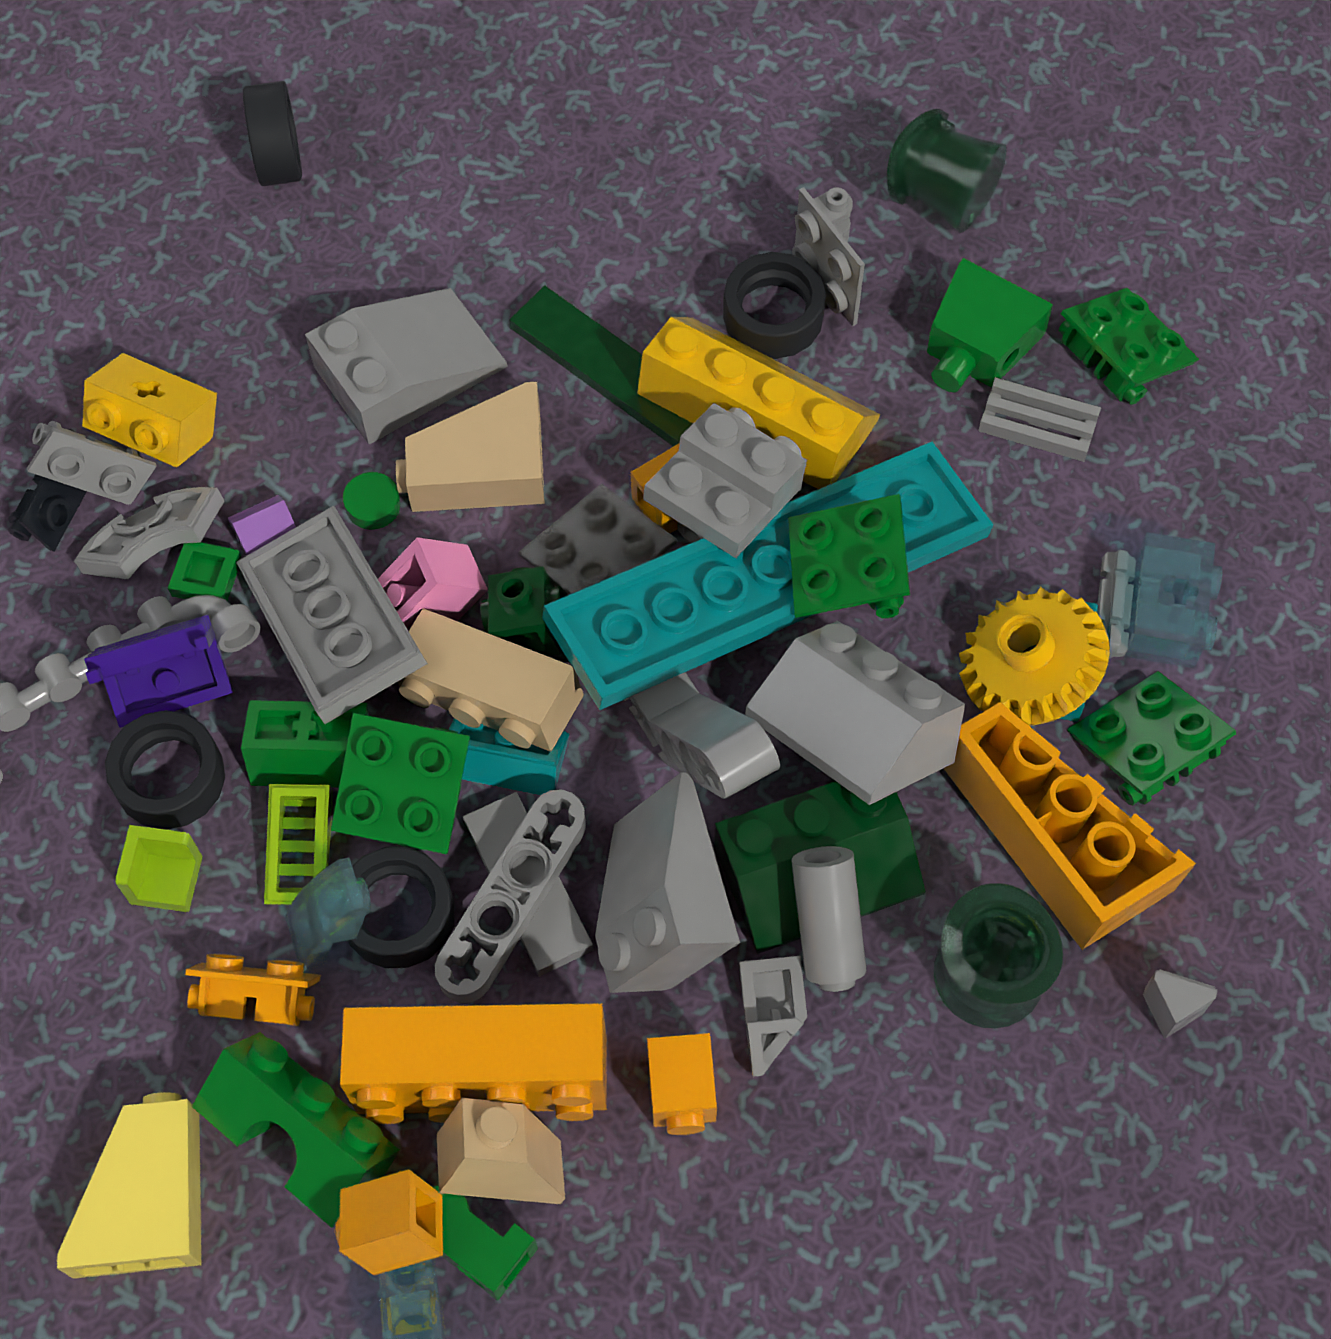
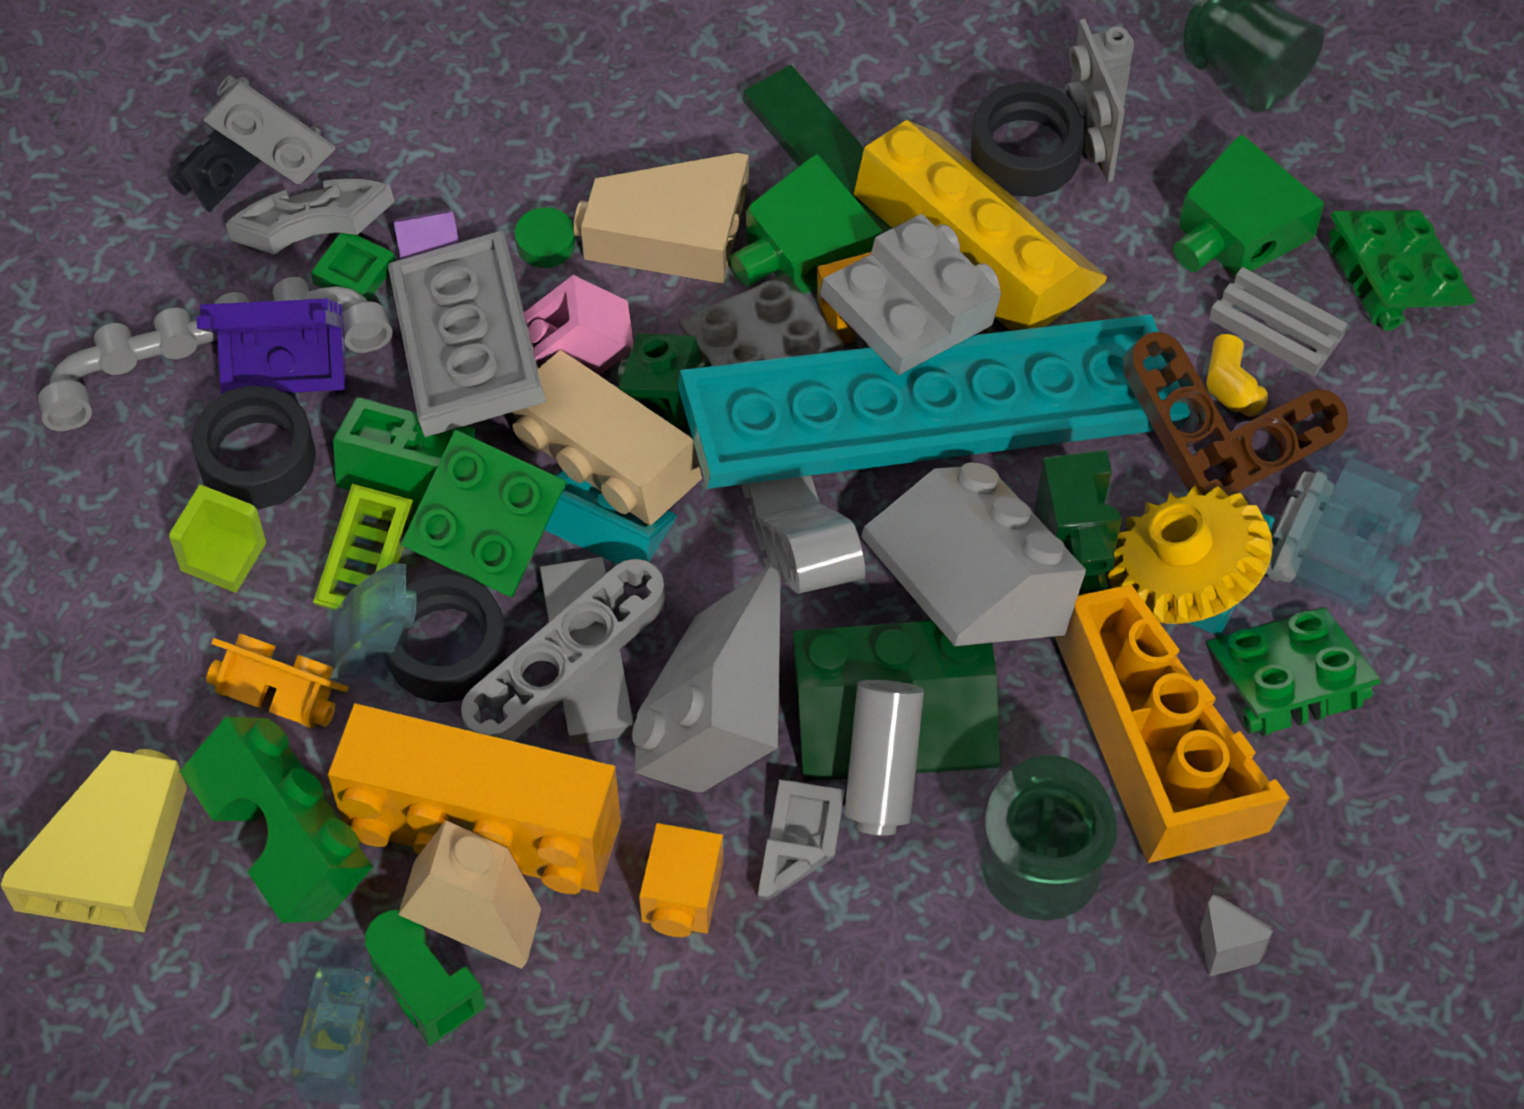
camera: 15 degrees right, 5 degrees down
(149, 409) = (345, 92): yellow brick -> none
(390, 1222) = (340, 926): light orange brick -> none
(401, 358) = (619, 103): light grey slope -> none
(606, 437) = (801, 226): none -> green torso
(850, 558) = (1016, 401): green hinge -> none
(923, 641) = (1075, 511): none -> dark green hips
(1015, 485) = (1230, 382): none -> yellow arm
(1036, 547) = (1227, 448): none -> reddish brown beam

